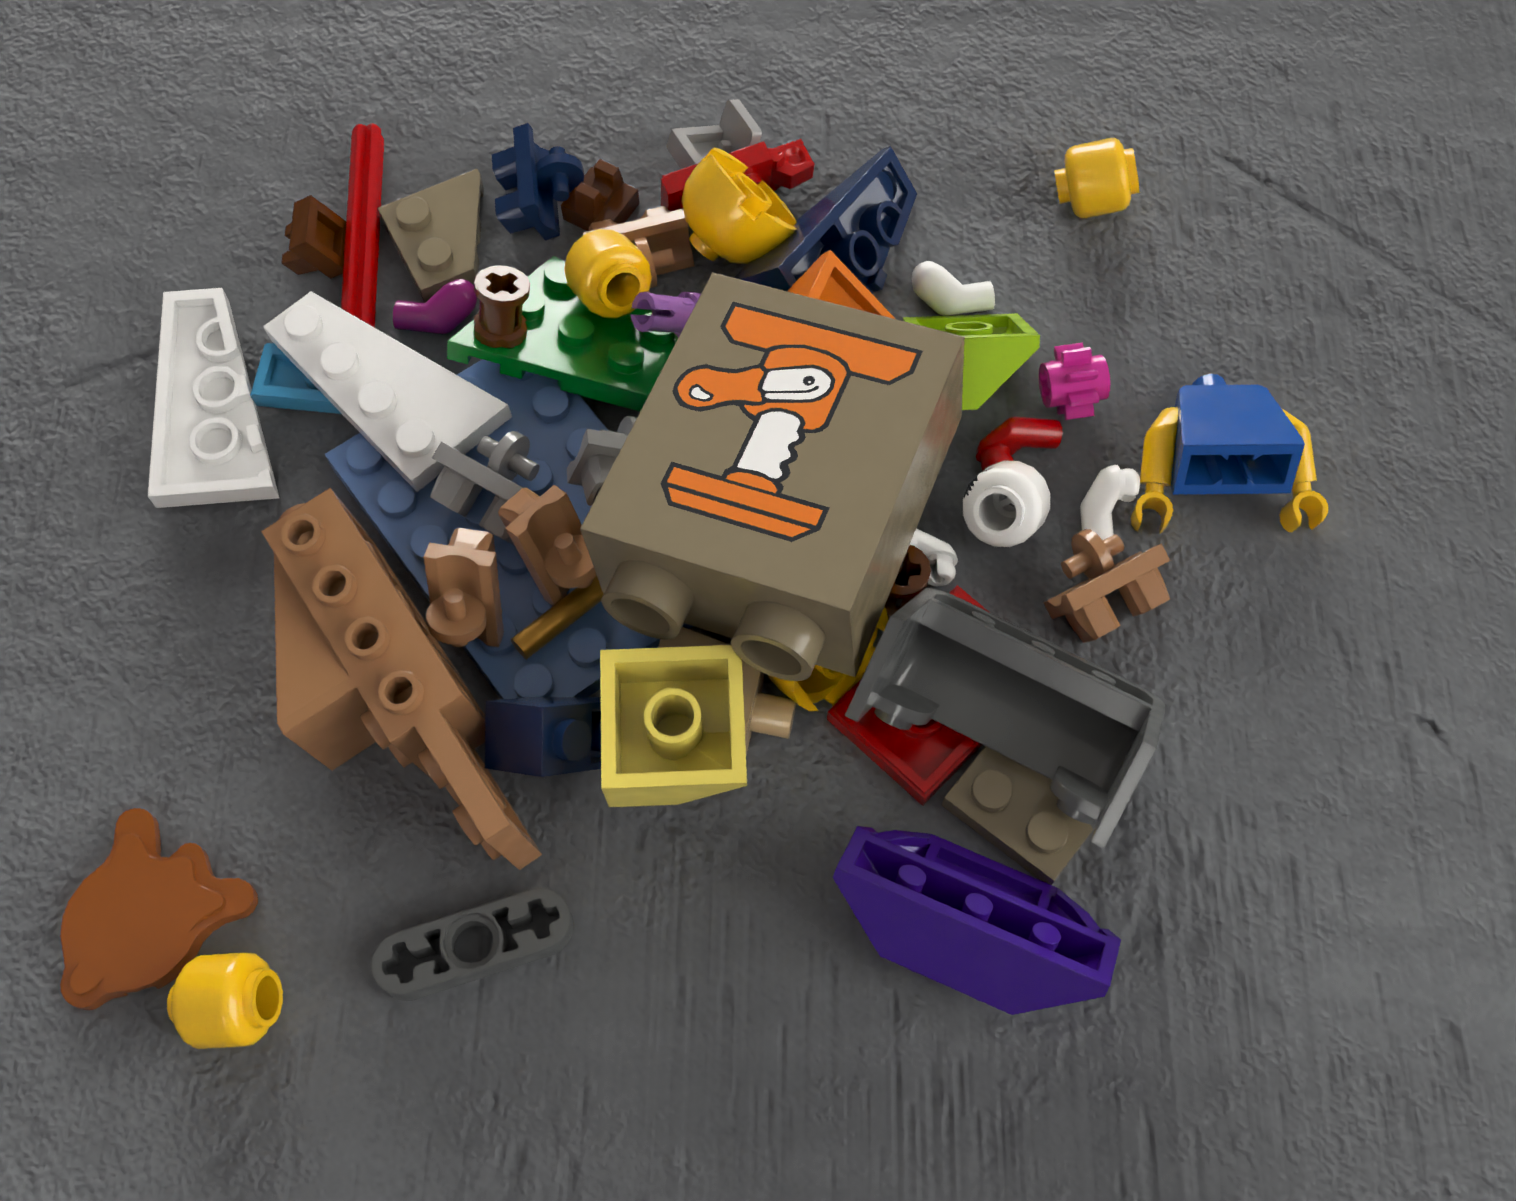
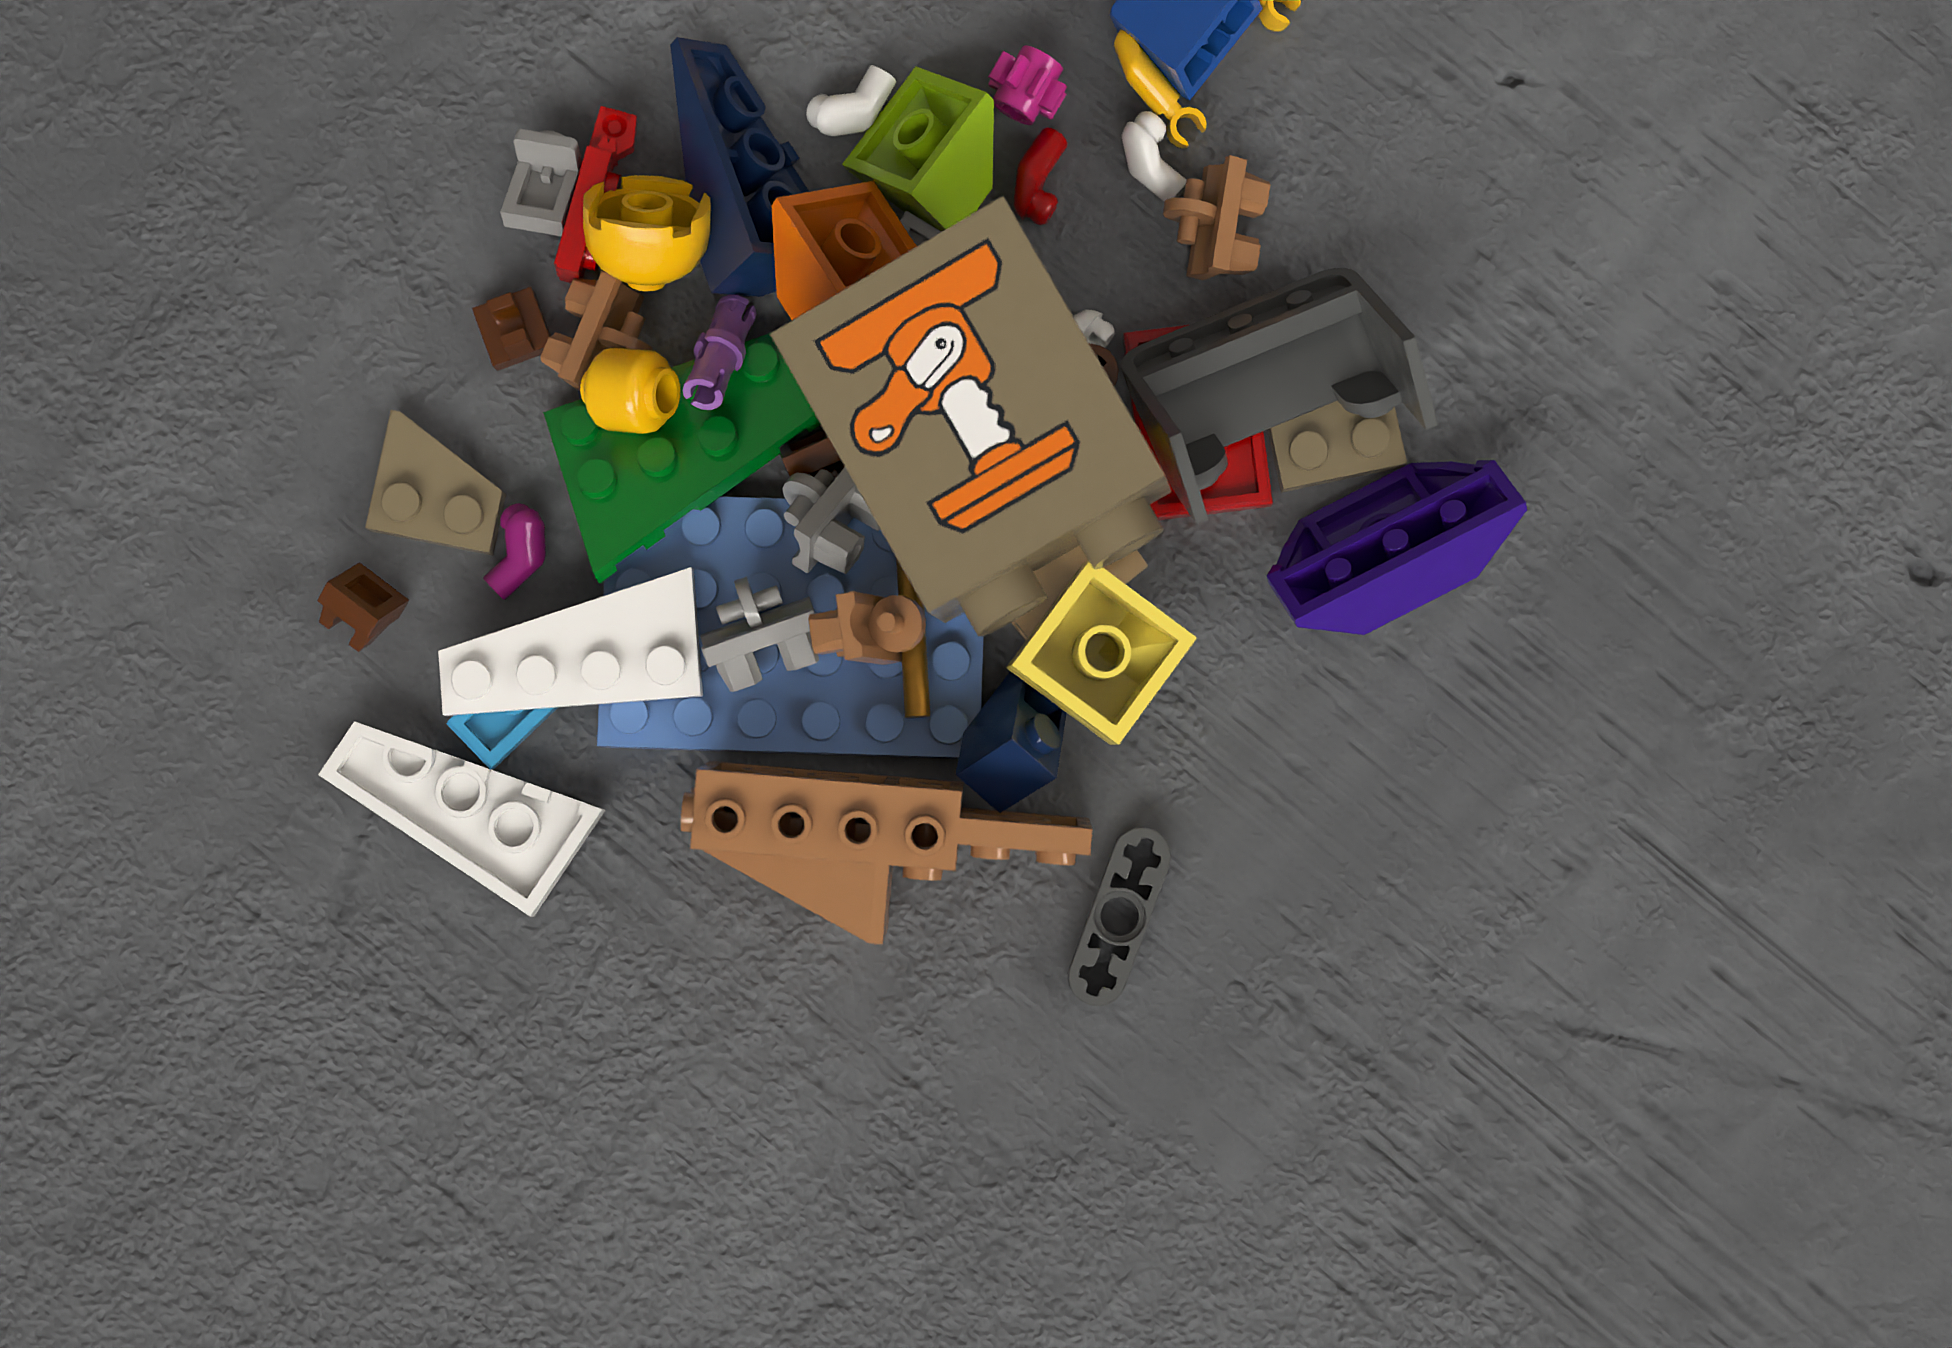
camera: 50 degrees left, 20 degrees up
(143, 915) = (904, 1143): dark orange tile -> none
(225, 1000) = (1027, 1122): yellow head -> none
(363, 223) = (372, 554): red axle -> none
(464, 589) = (856, 727): medium nougat hips -> none
(501, 299) = (597, 489): reddish brown bush -> none
(541, 181) = (430, 360): dark blue hips -> none
(989, 512) = (1094, 238): white head -> none

